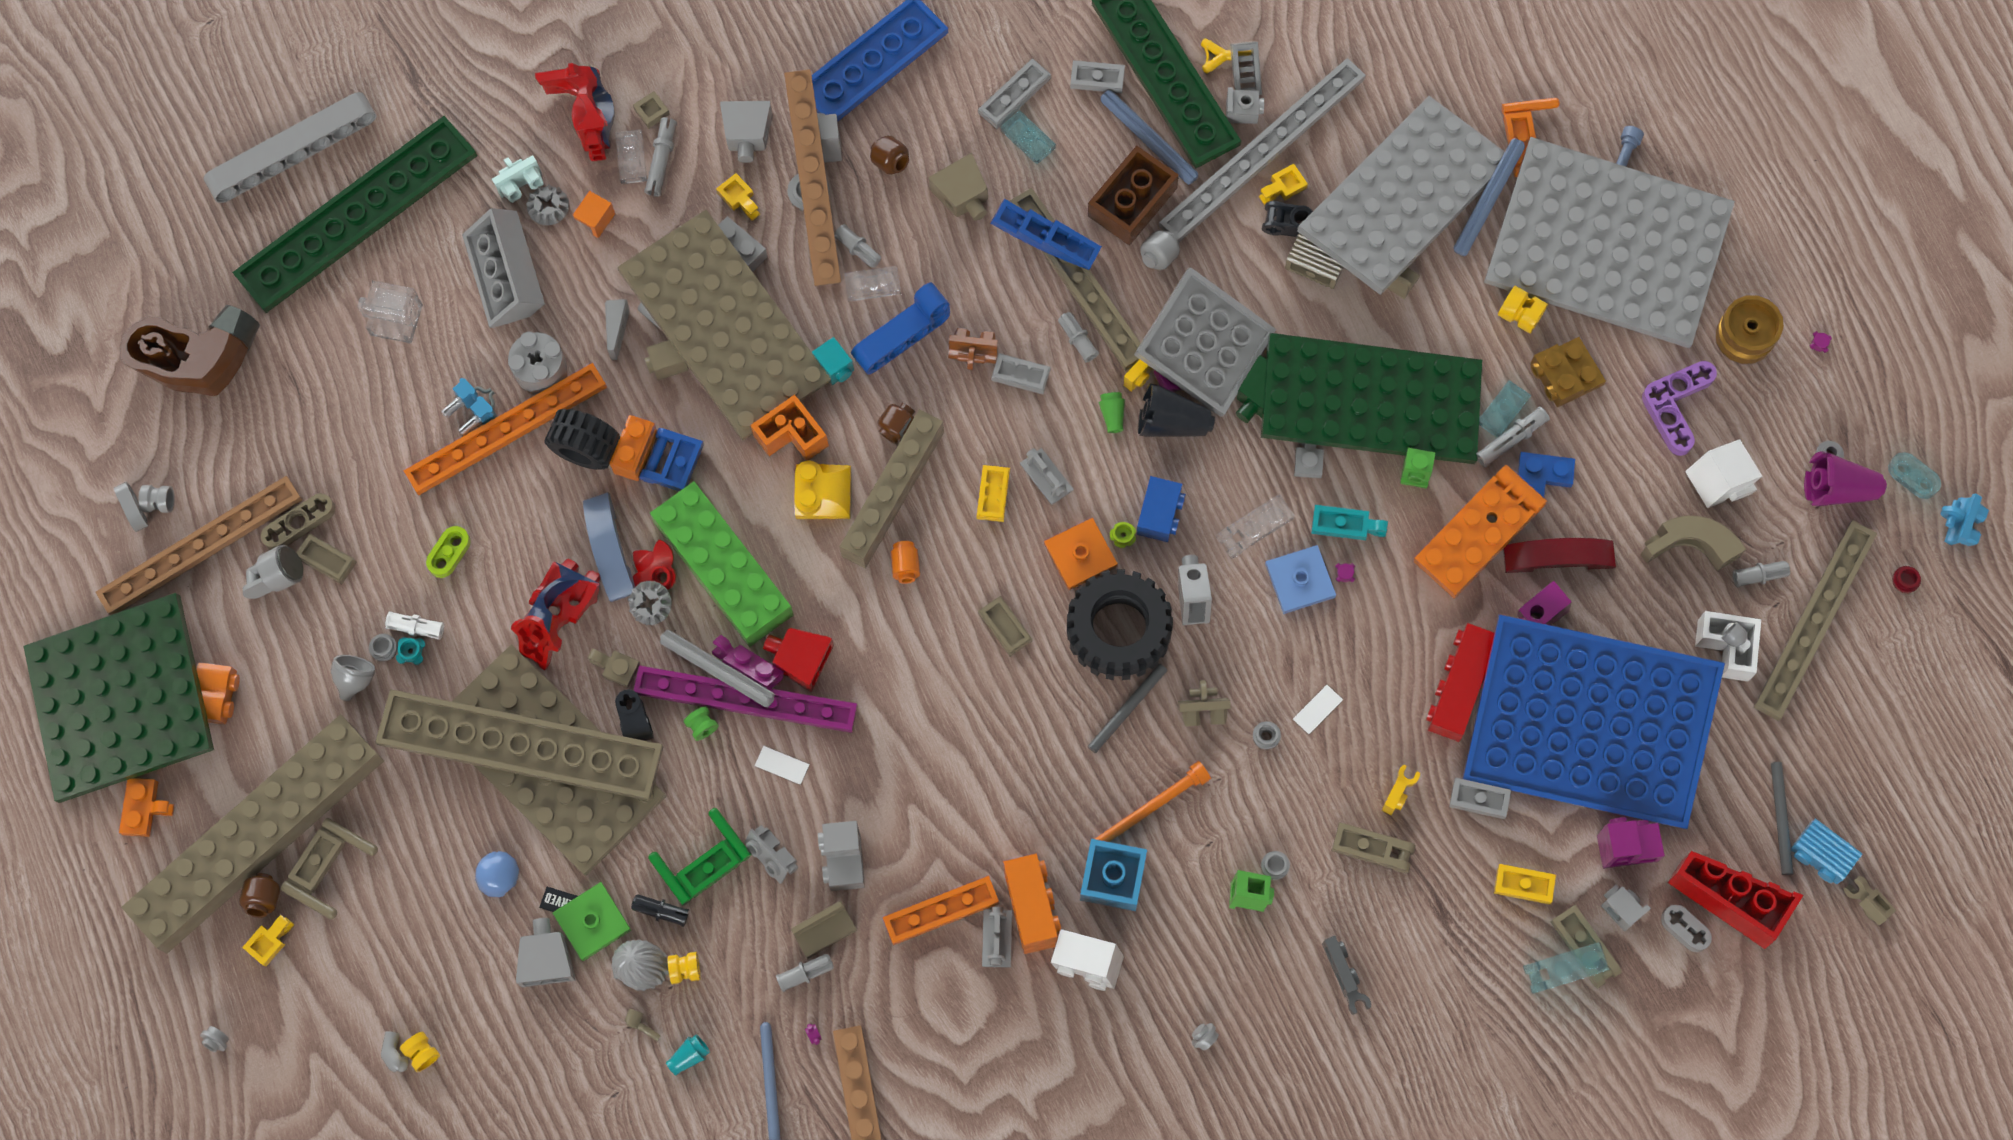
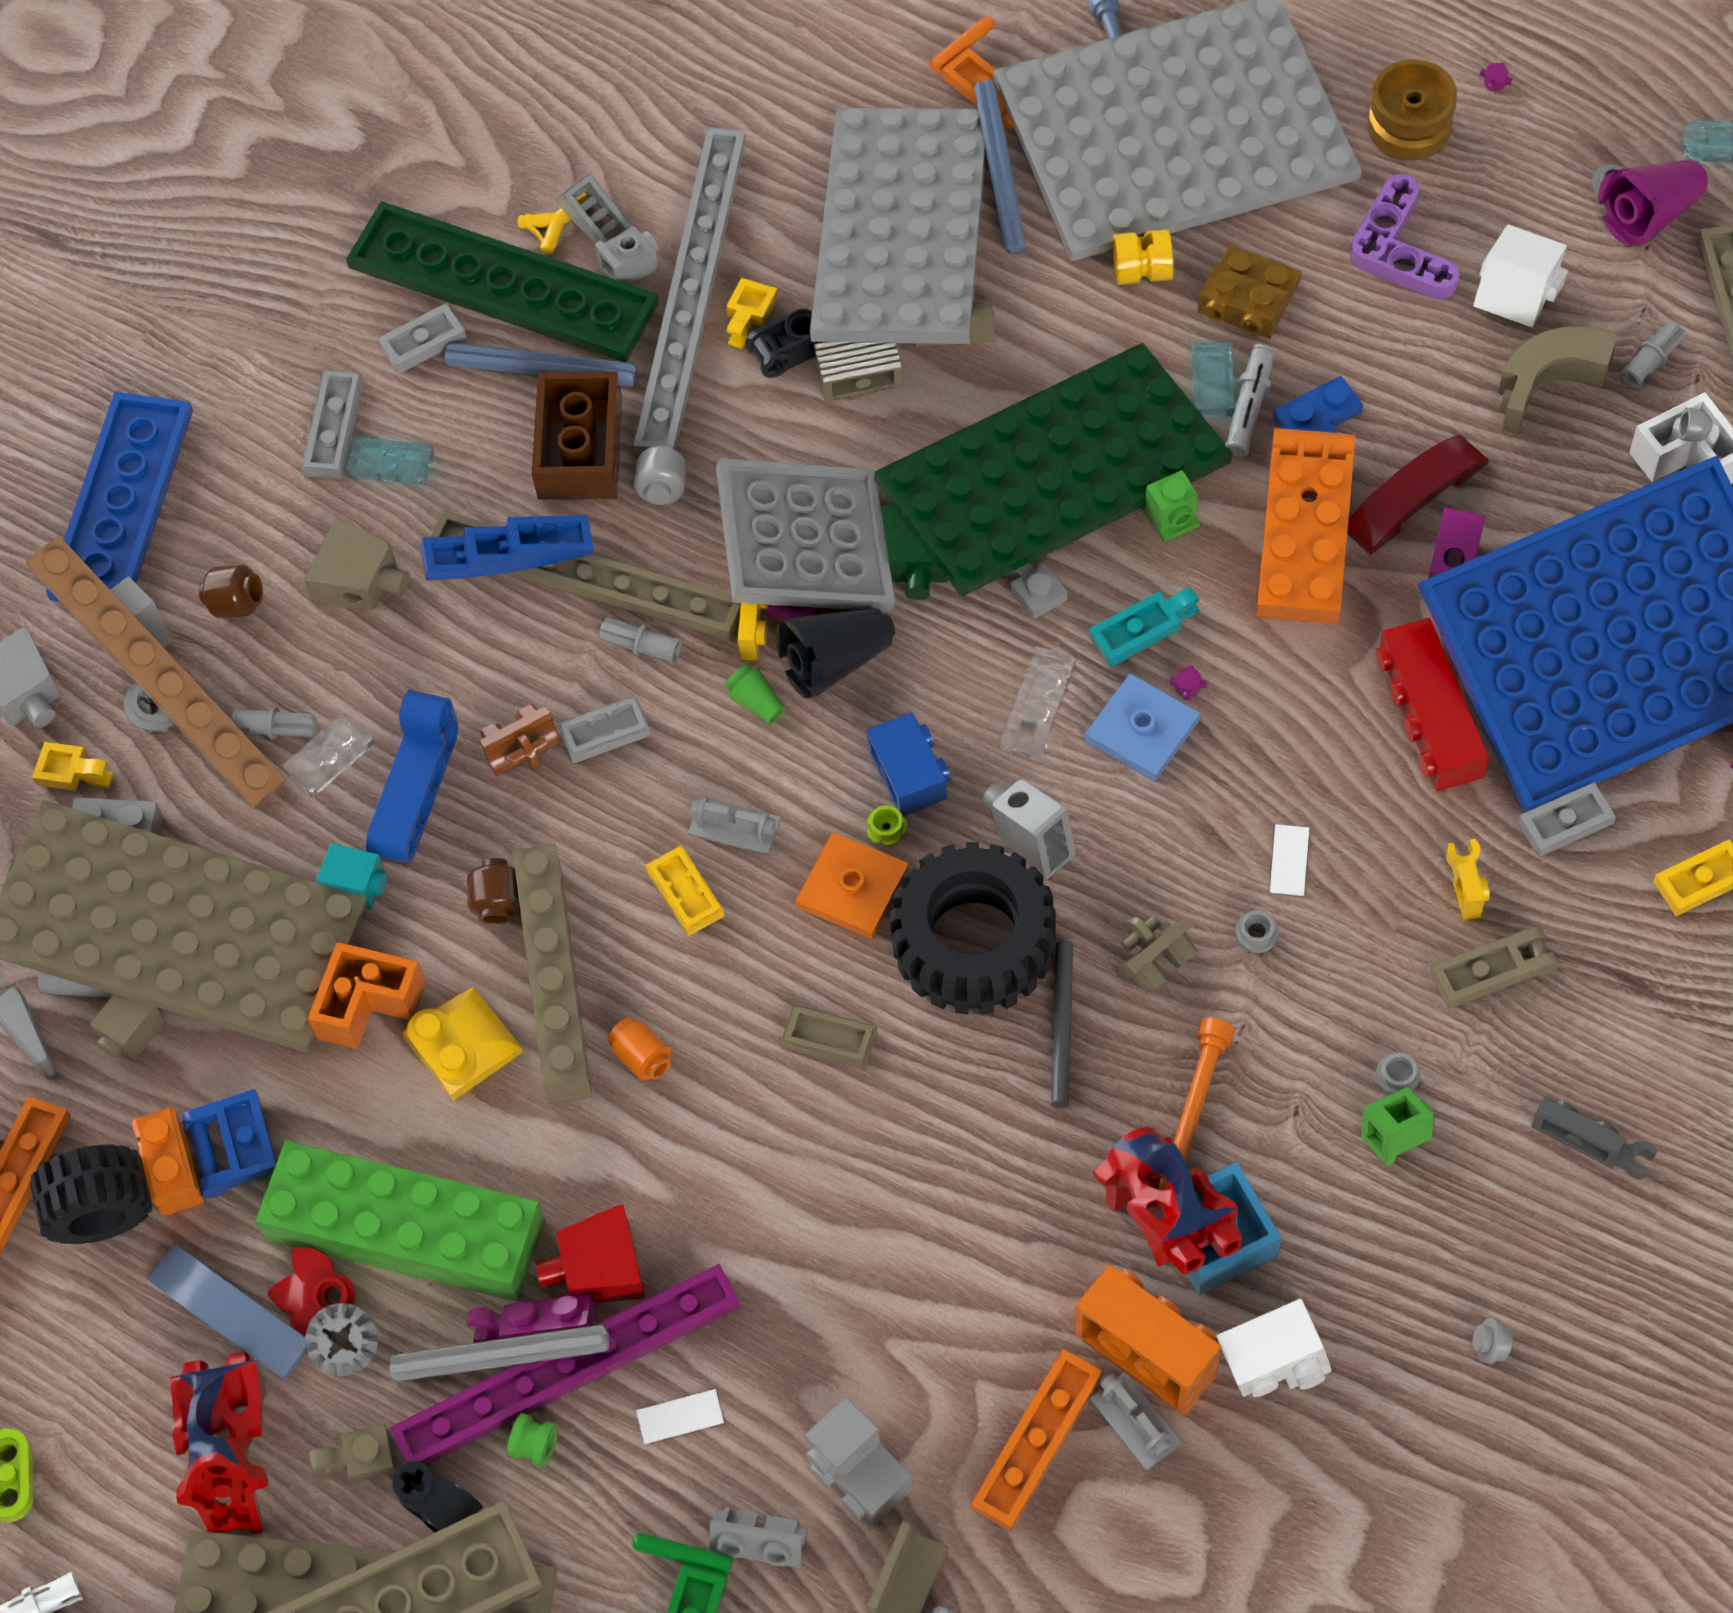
camera: 35 degrees left, 10 degrees down
(1099, 814) = (1173, 1217): none -> red hips

